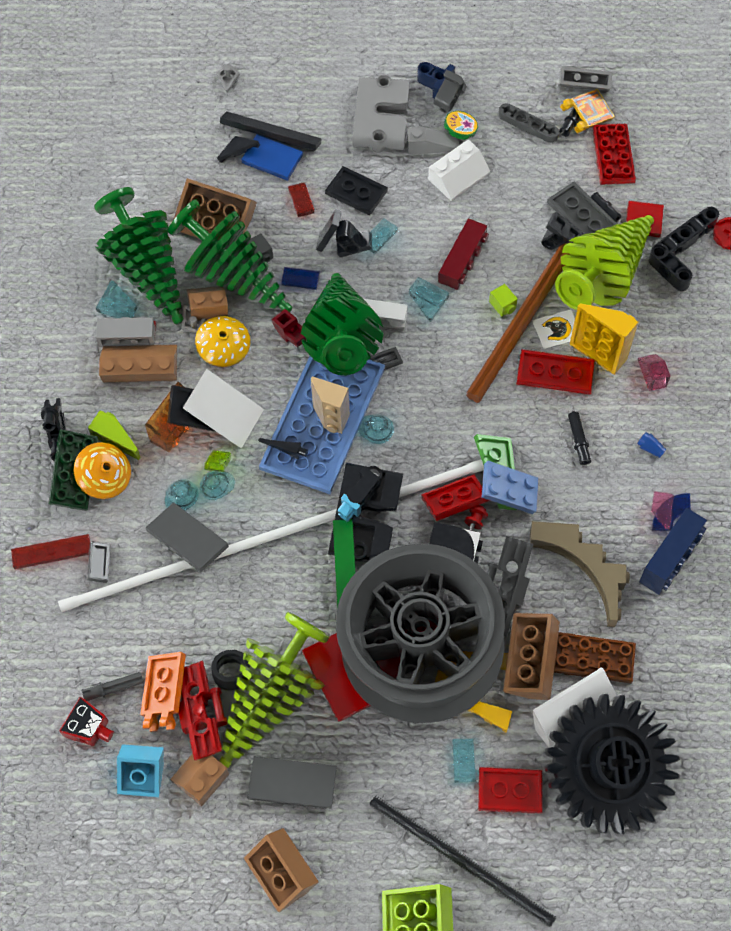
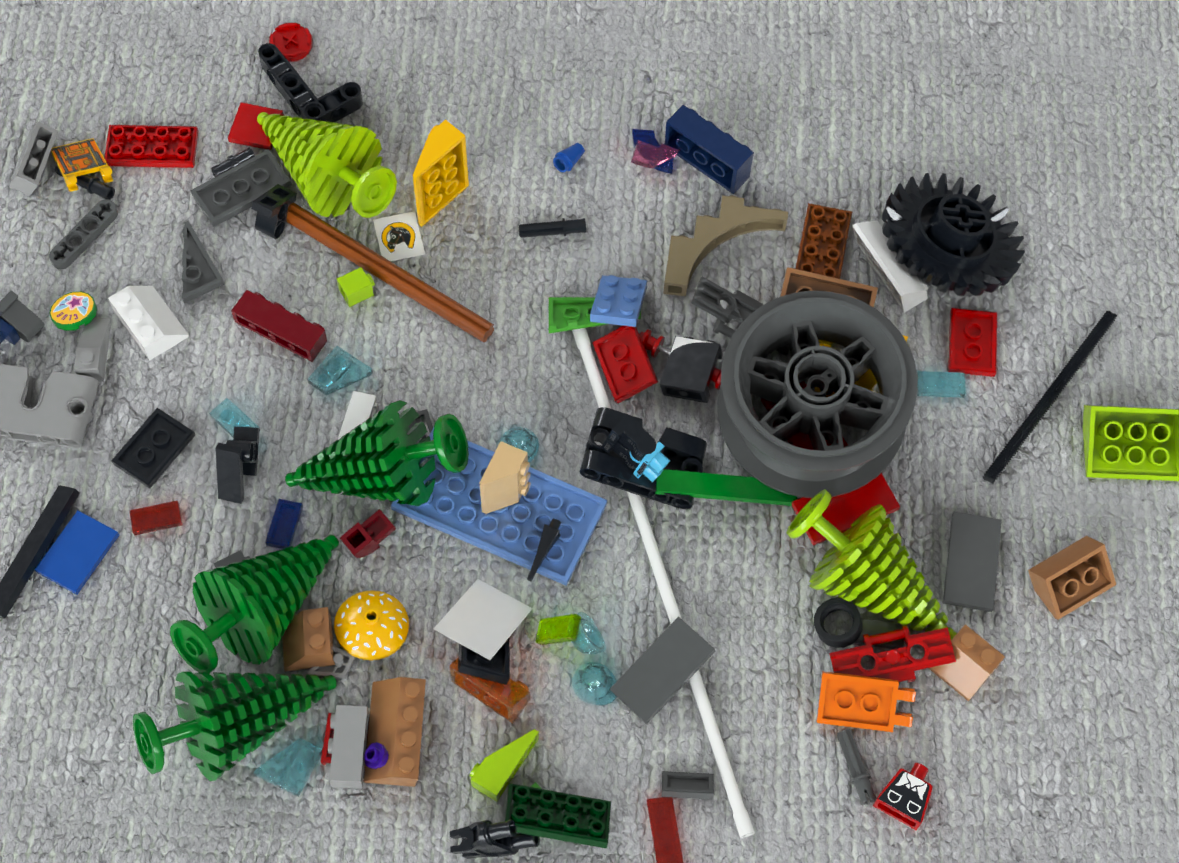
camera: 90 degrees left, 0 degrees up
(94, 478) = (559, 778): light orange dish -> none
(116, 347) = (376, 756): none -> dark purple plate
(140, 770) = (962, 730): medium azure slope -> none
(214, 205) = (145, 638): medium nougat slope -> none
(237, 147) = (53, 595): black tile -> none
(506, 197) = (199, 271): none -> dark grey wing
(555, 371) = (459, 244): red tile -> none
(654, 371) = (478, 139): clear pink slope -> none

